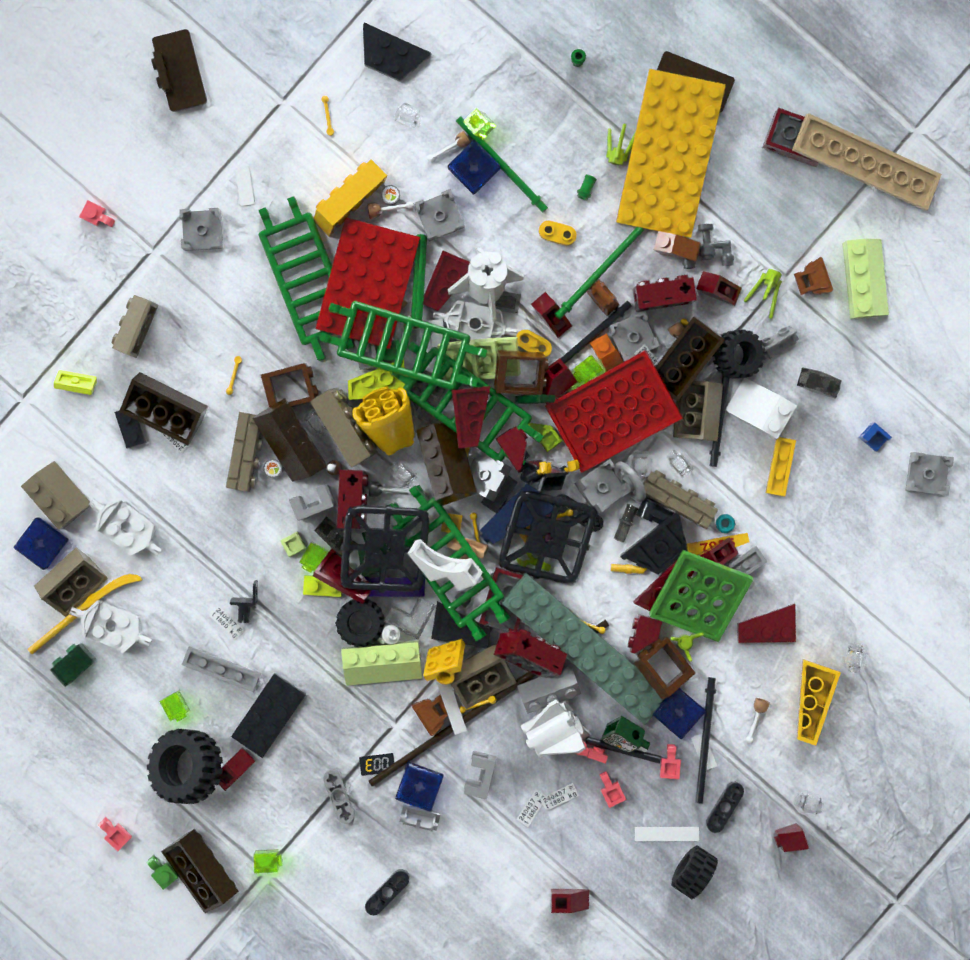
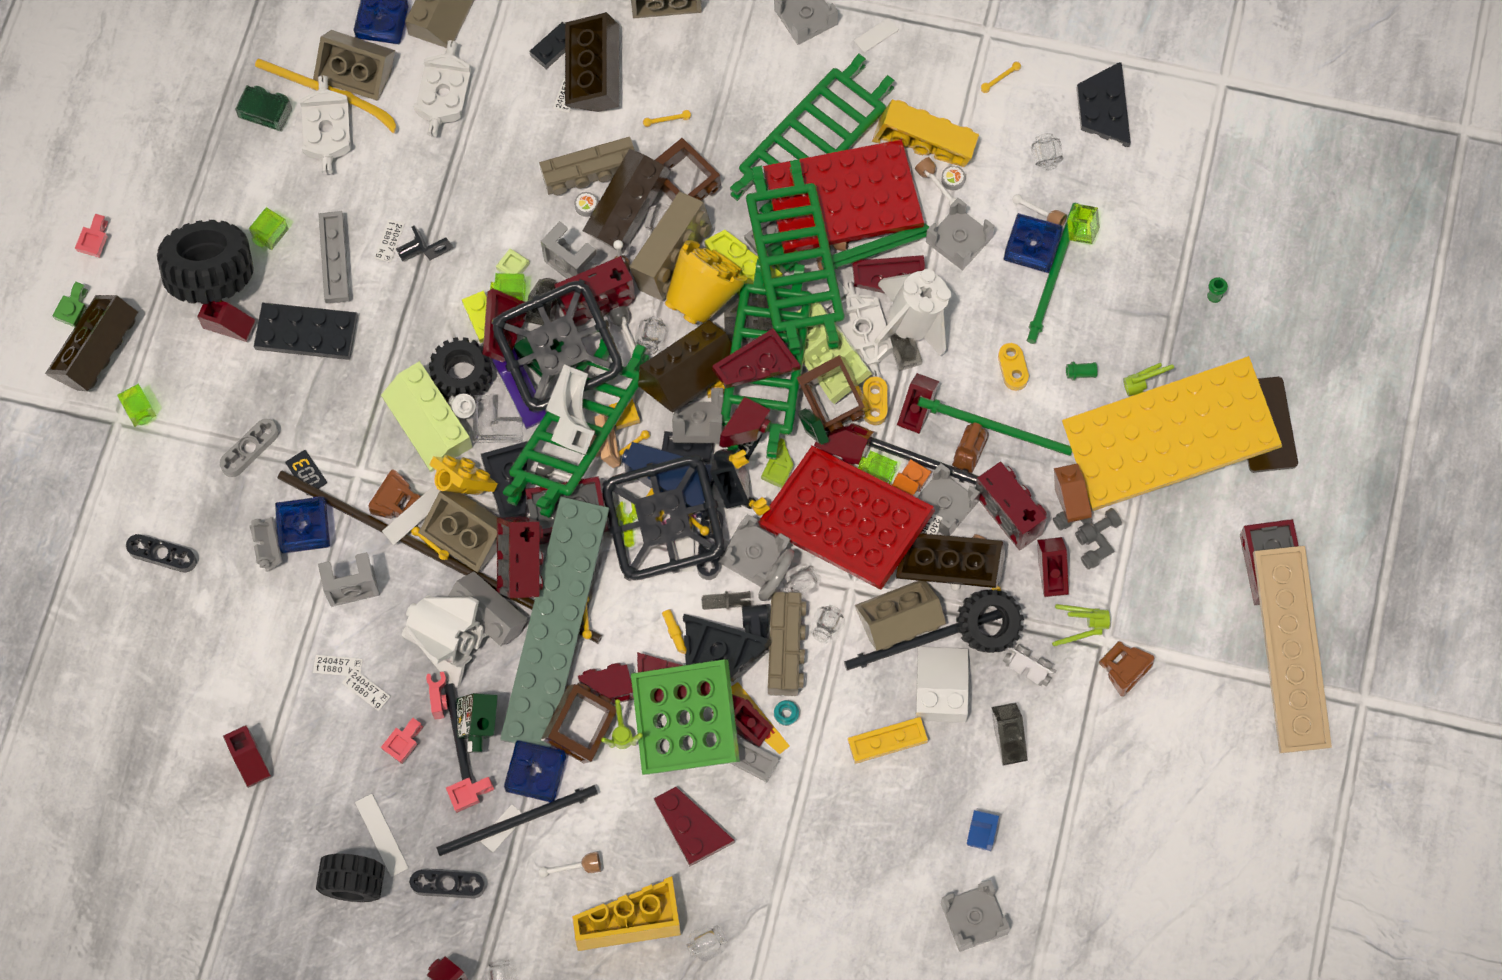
camera: 55 degrees right, 20 degrees down
(865, 278) = (1161, 724): yellowish green slope -> none

